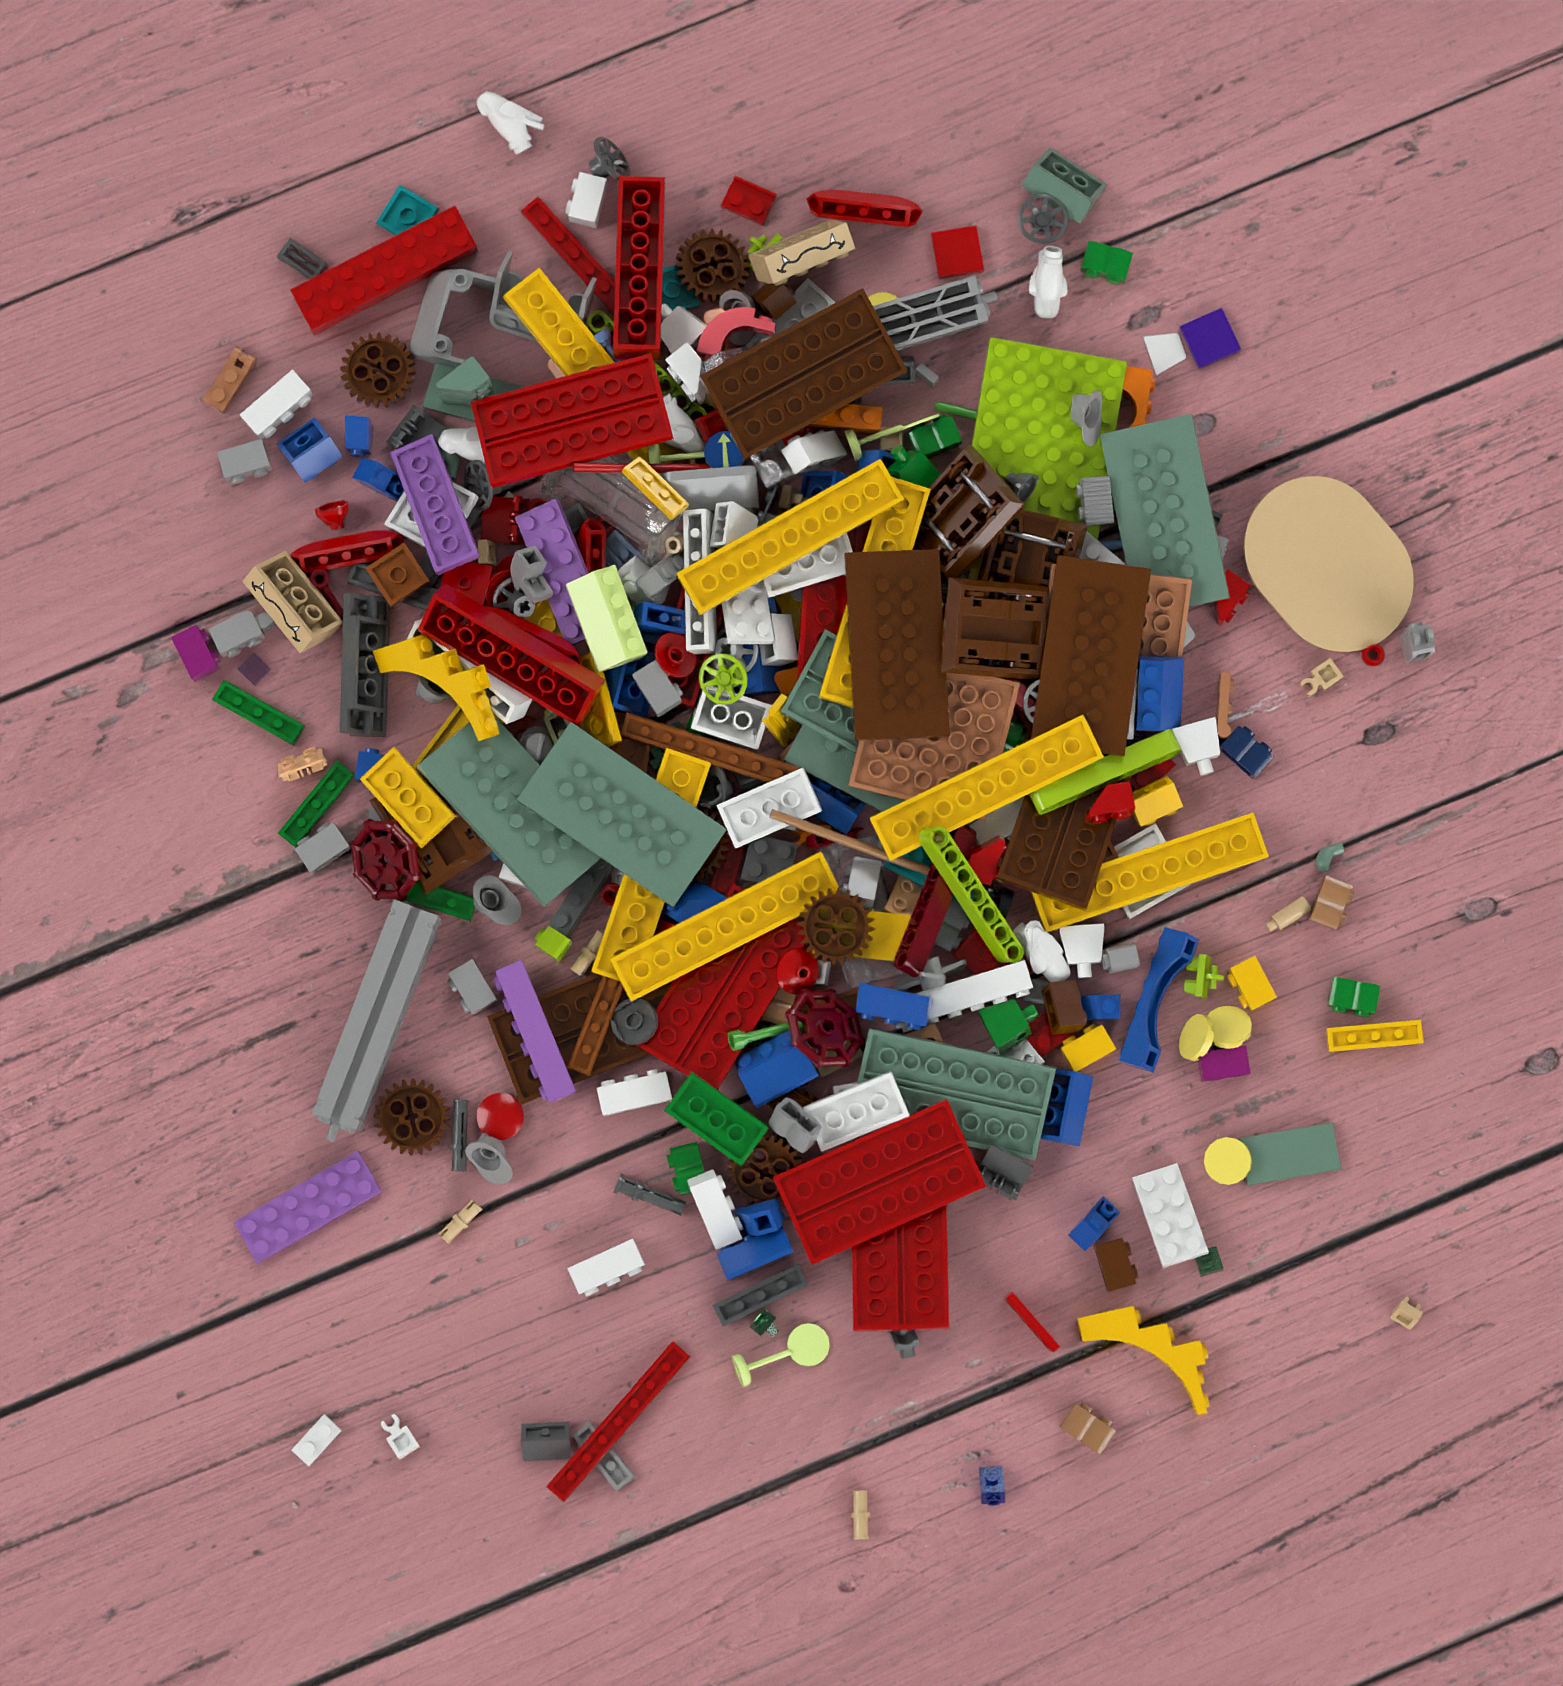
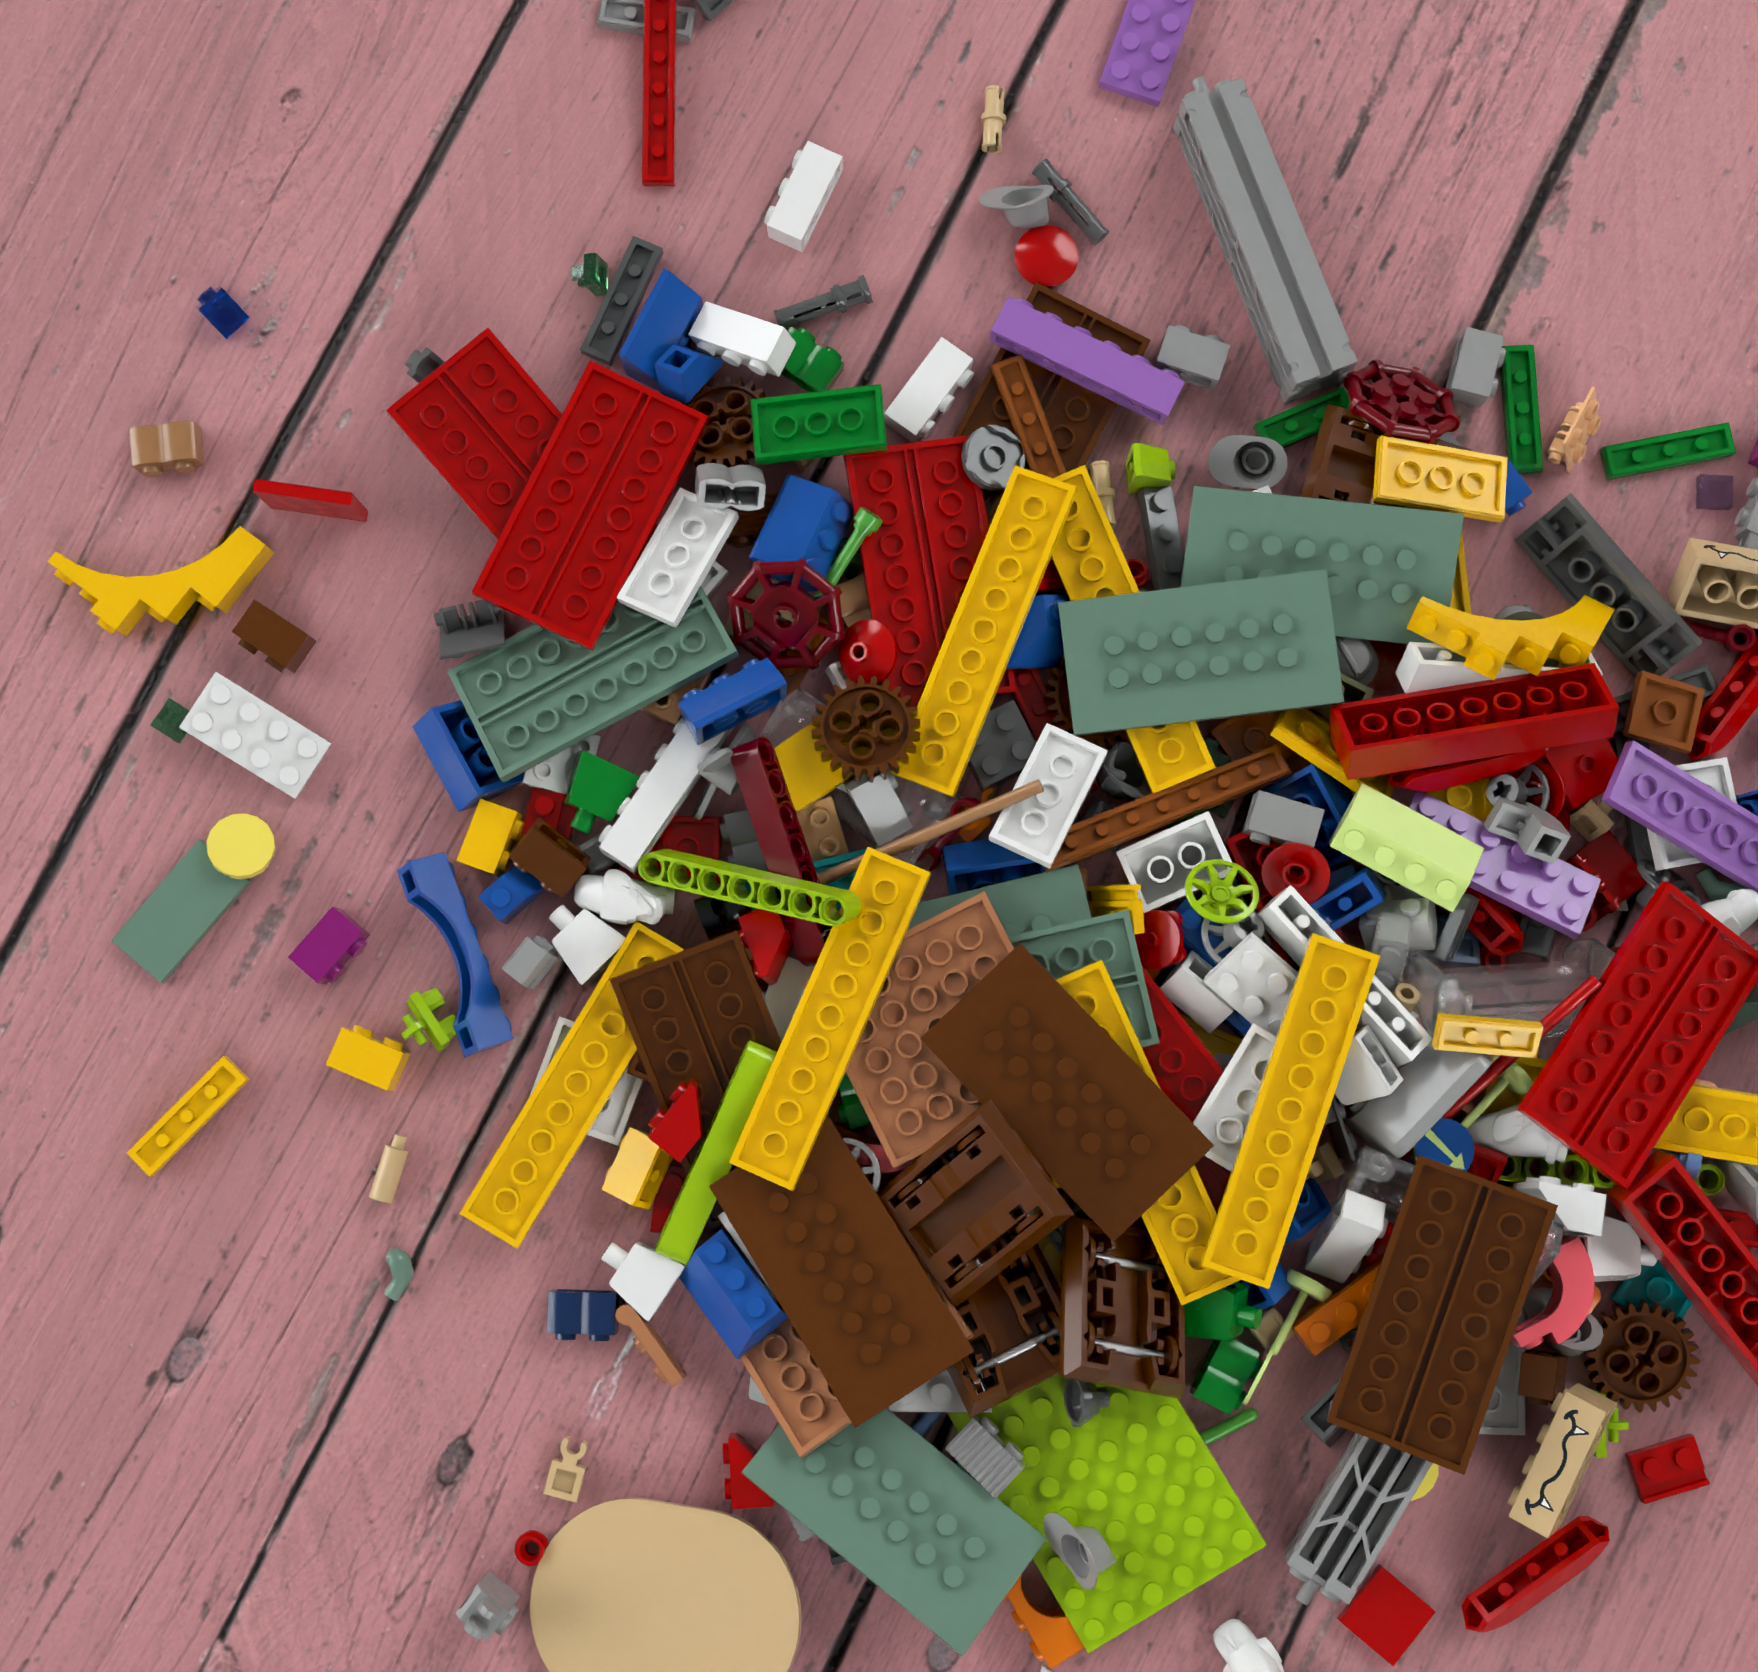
camera: 140 degrees right, 0 degrees up
(390, 1122) = (1152, 157): reddish brown gear -> none
(614, 557) = (1456, 928): none -> dark grey tile
(774, 682) = (1162, 940): none -> red piece
(806, 1346) = (532, 291): yellowish green piece -> none
(860, 1515) = (333, 171): tan pin -> none
(926, 375) = (1296, 1438): light grey tile -> none
(1094, 1223) = (331, 660): blue slope -> none
(1196, 1037) = (379, 946): light yellow tile -> none
(1230, 1026) = (355, 988): light yellow tile -> none
(1330, 903) = (352, 1222): medium nougat brick -> none
(1353, 996) = (245, 1139): green brick -> none

